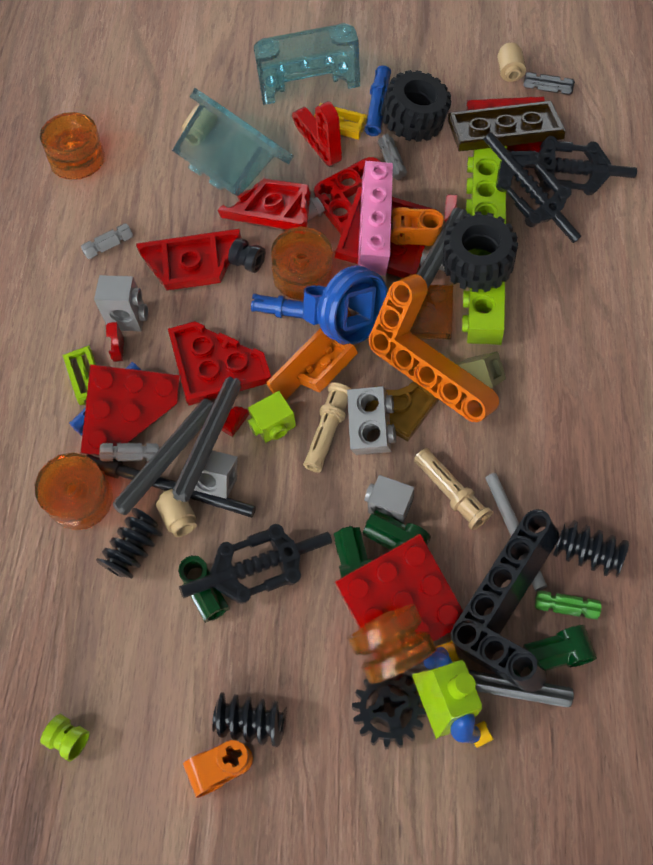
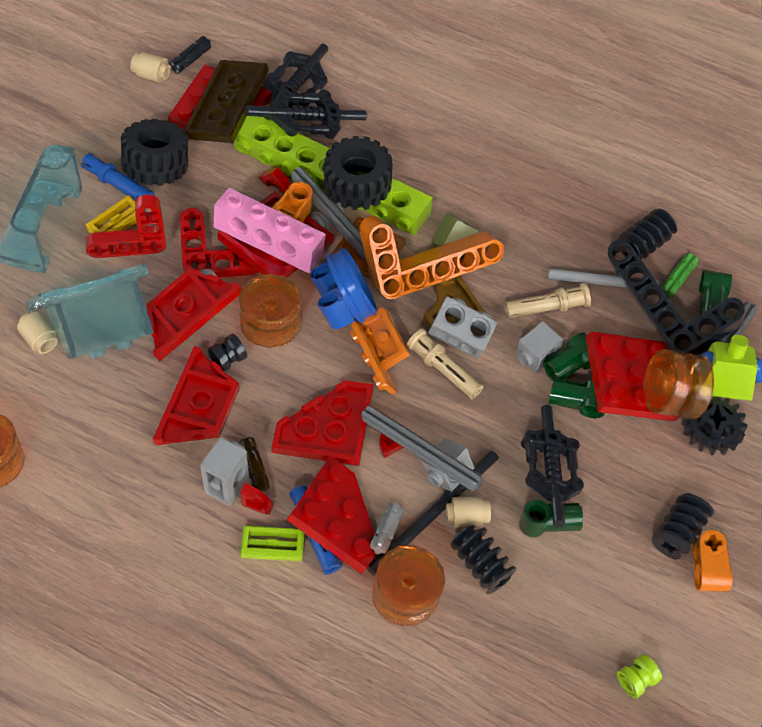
camera: 75 degrees left, 5 degrees down
(107, 241) = (124, 467): light grey axle -> none
(151, 326) = (255, 464): none -> dark brown axle
(162, 458) = (409, 499): dark grey axle -> none
(271, 417) = (414, 401): lime brick -> none
(278, 306) = (301, 348): blue pin -> none
(392, 155) = (189, 198): light grey axle -> none

